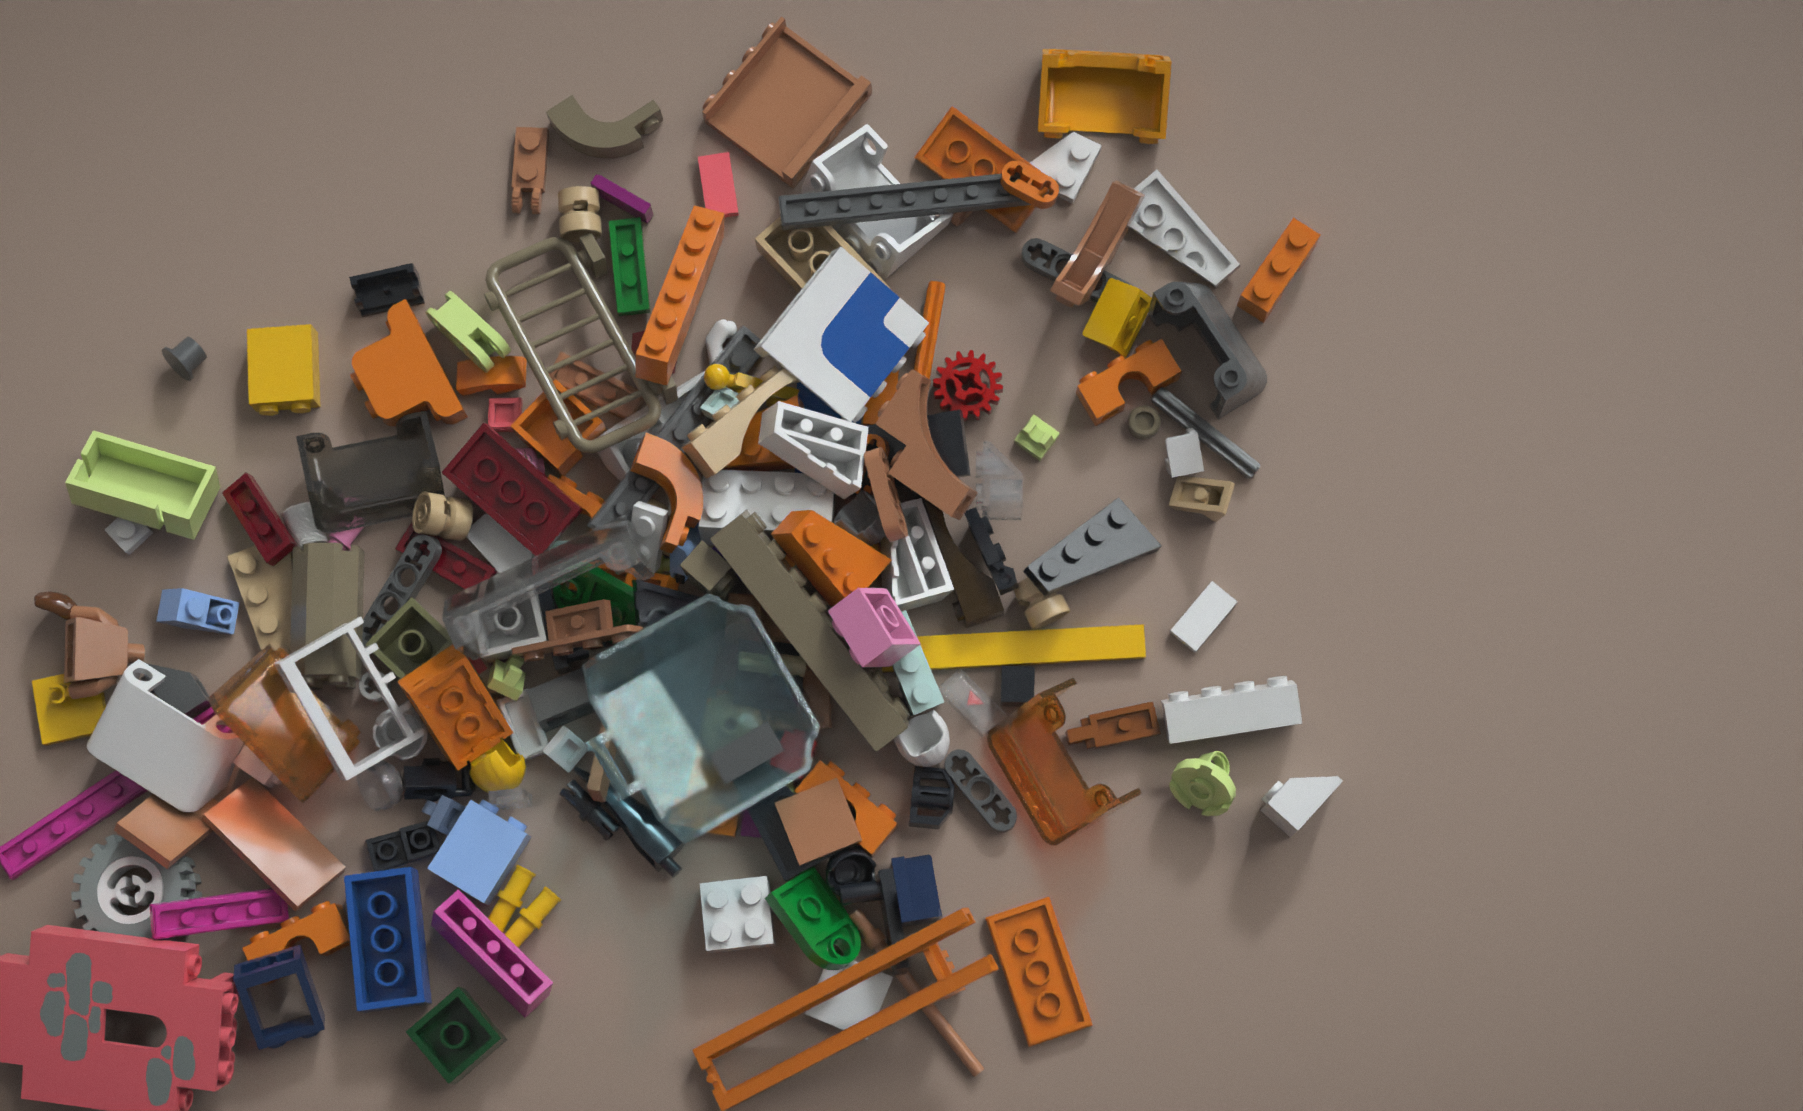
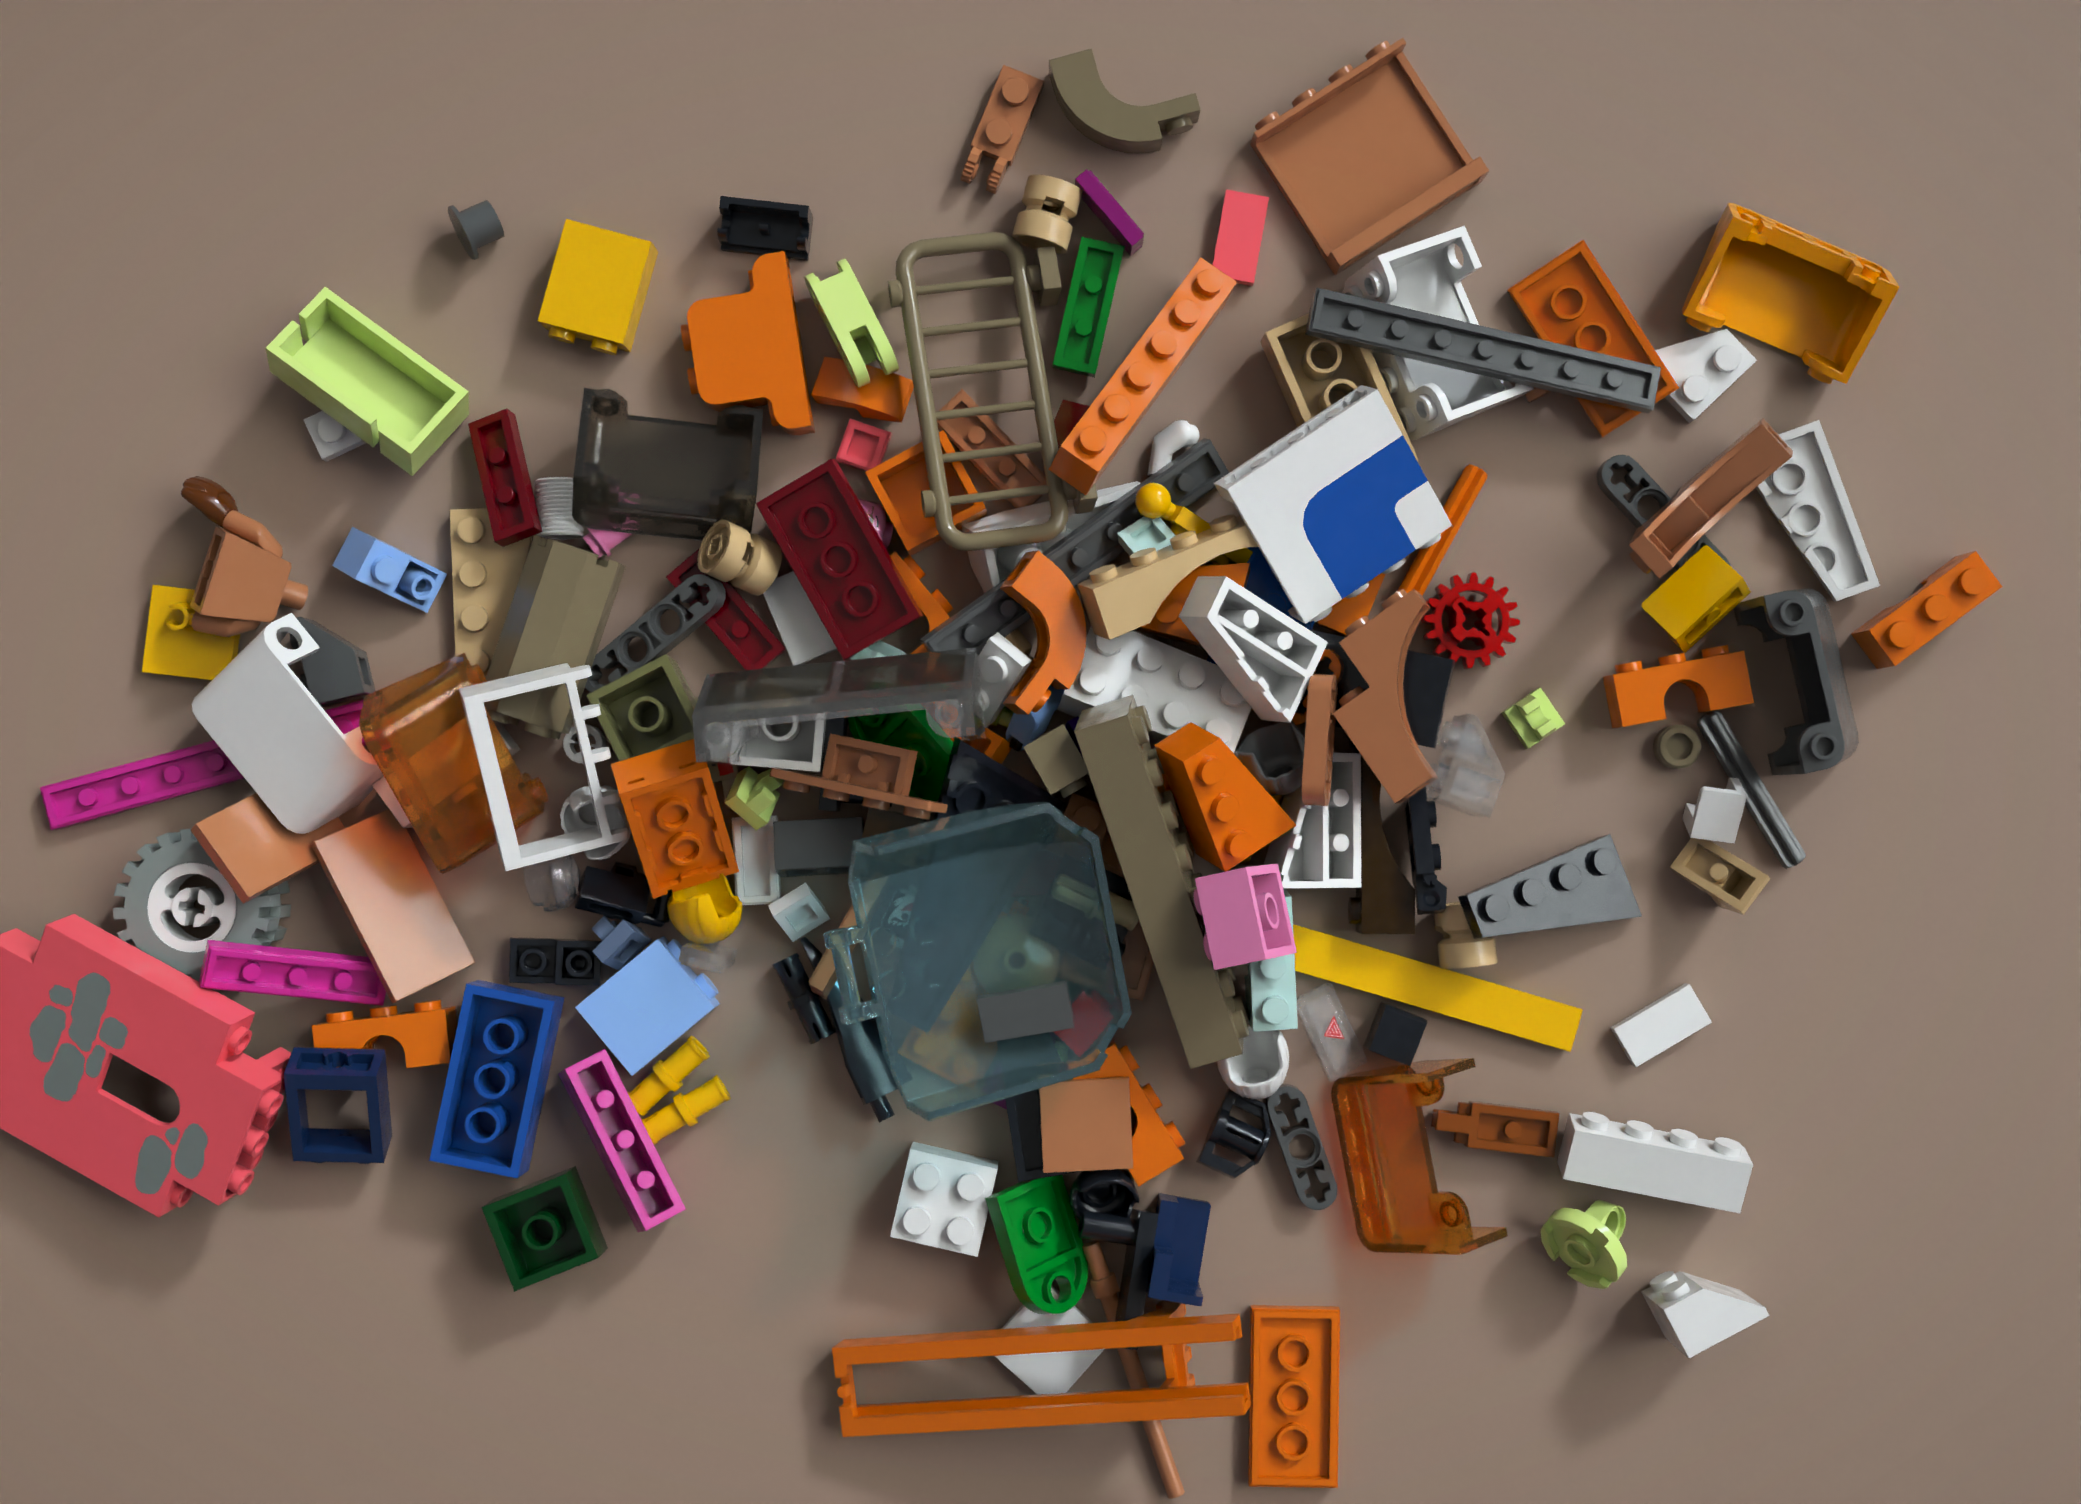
camera: 15 degrees right, 10 degrees up
(1029, 184) = (1650, 386): orange beam -> none

